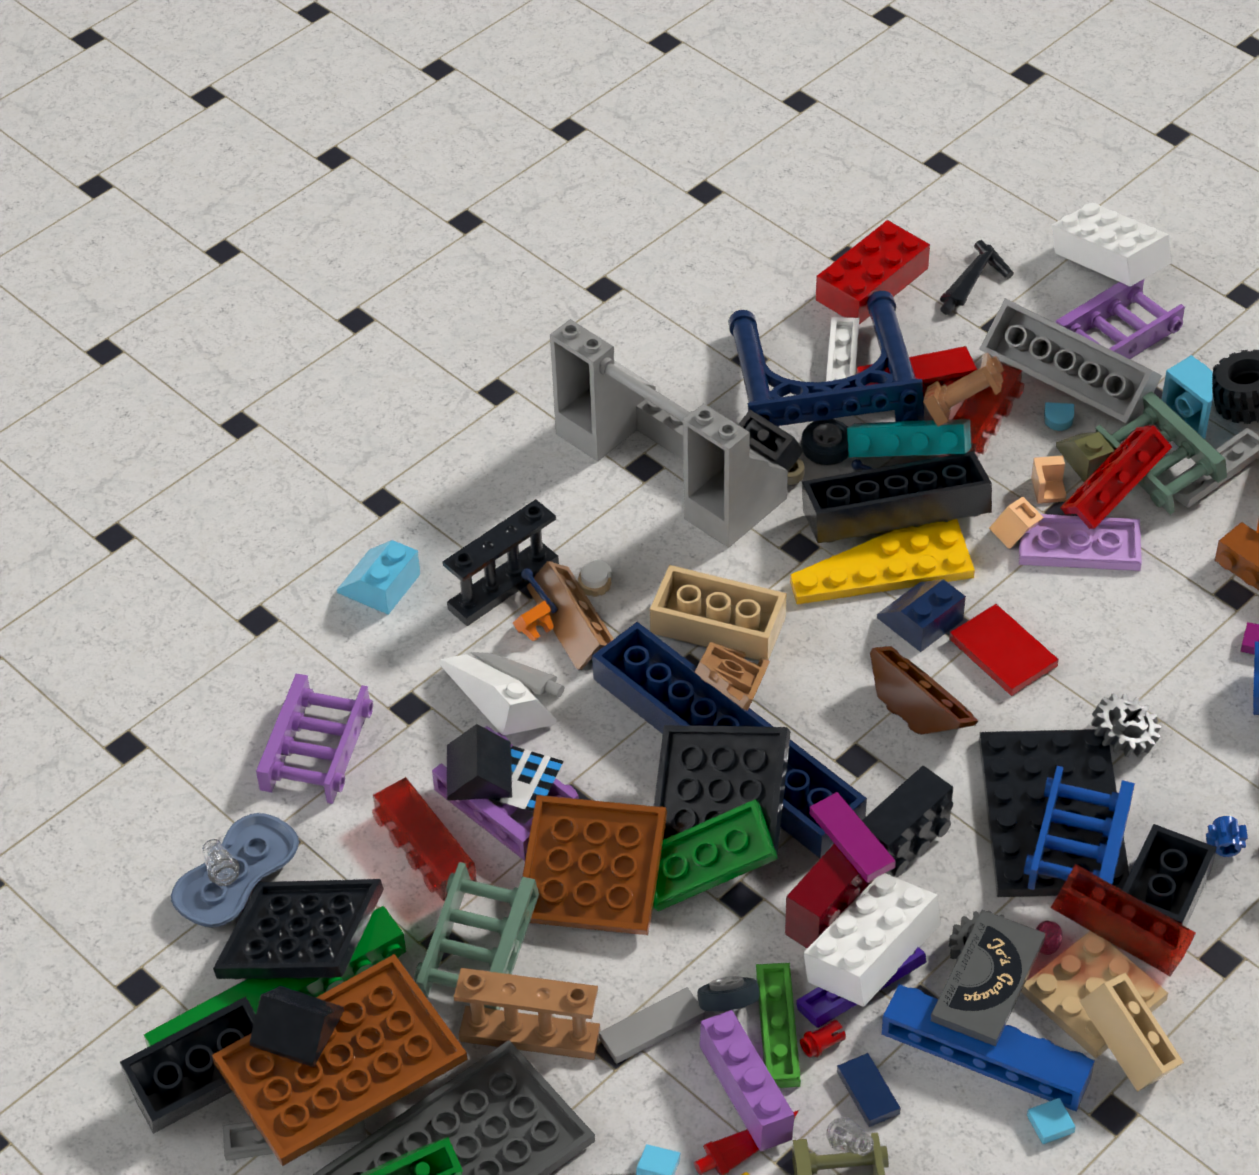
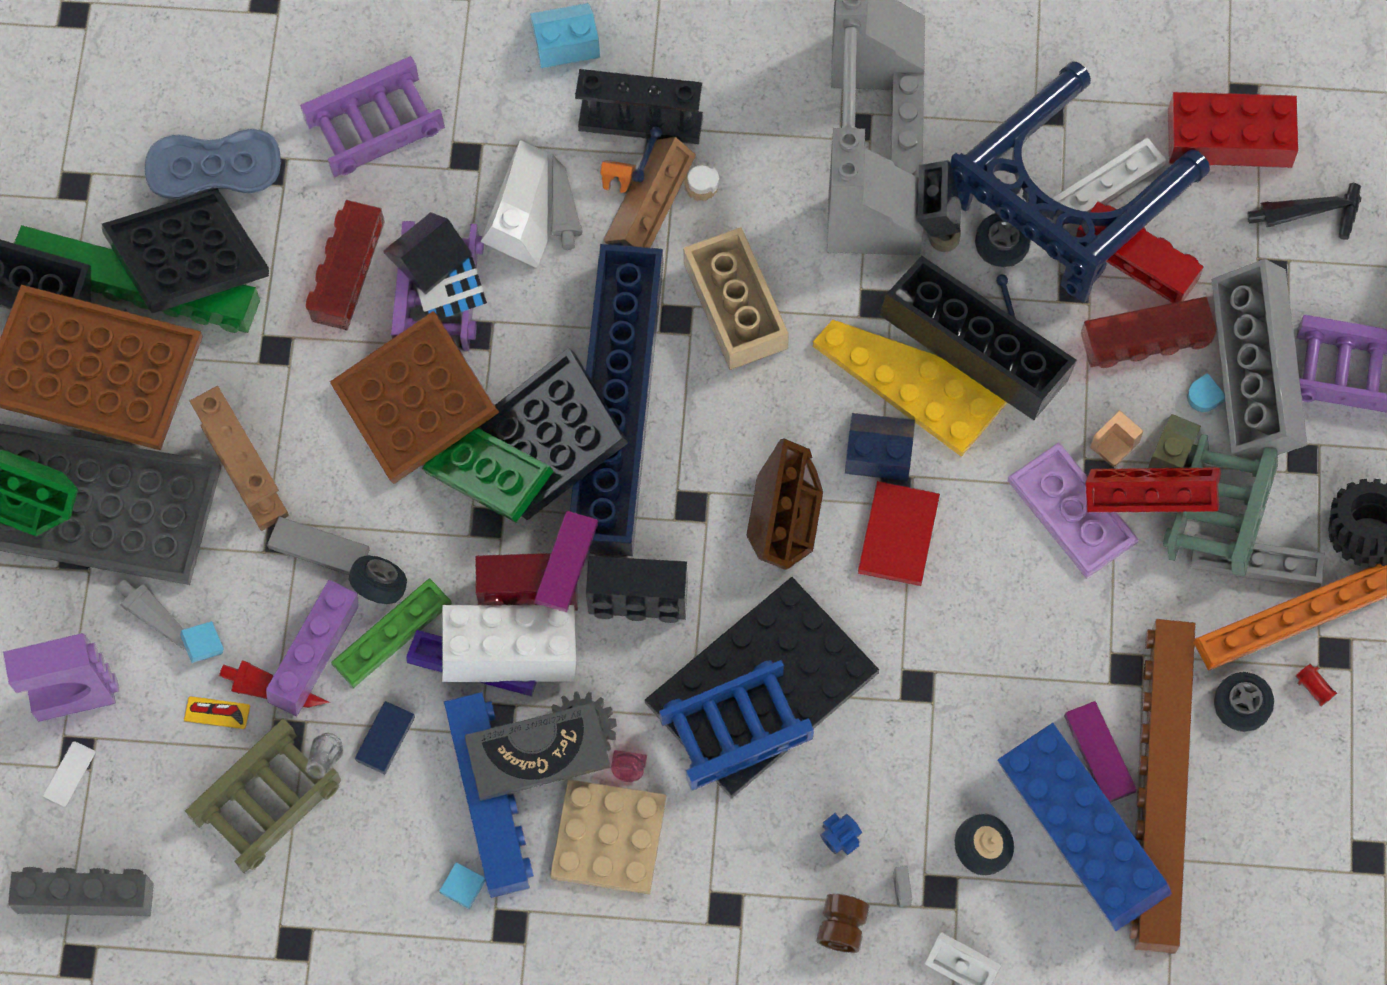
camera: 50 degrees right, 20 degrees up
(220, 864) = (200, 150): clear cone -> none
(294, 1024) = (85, 315): black slope -> none
(511, 929) = (297, 397): sand green fence -> none
(732, 673) = (670, 356): medium nougat wing -> none
(821, 1039) = (400, 673): red pin -> none
(909, 438) = (1049, 300): teal brick -> none
(941, 398) = (1125, 302): medium nougat fence -> none
(1015, 522) = (1040, 447): light nougat panel -> none
(1123, 920) = (676, 811): clear red brick -> none
(1126, 725) = (893, 668): dark grey gear -> none
(1131, 1031) = (572, 889): tan brick -> none
(1171, 873) = (747, 819): black brick -> none
(1189, 392) = (1311, 483): medium azure slope -> none

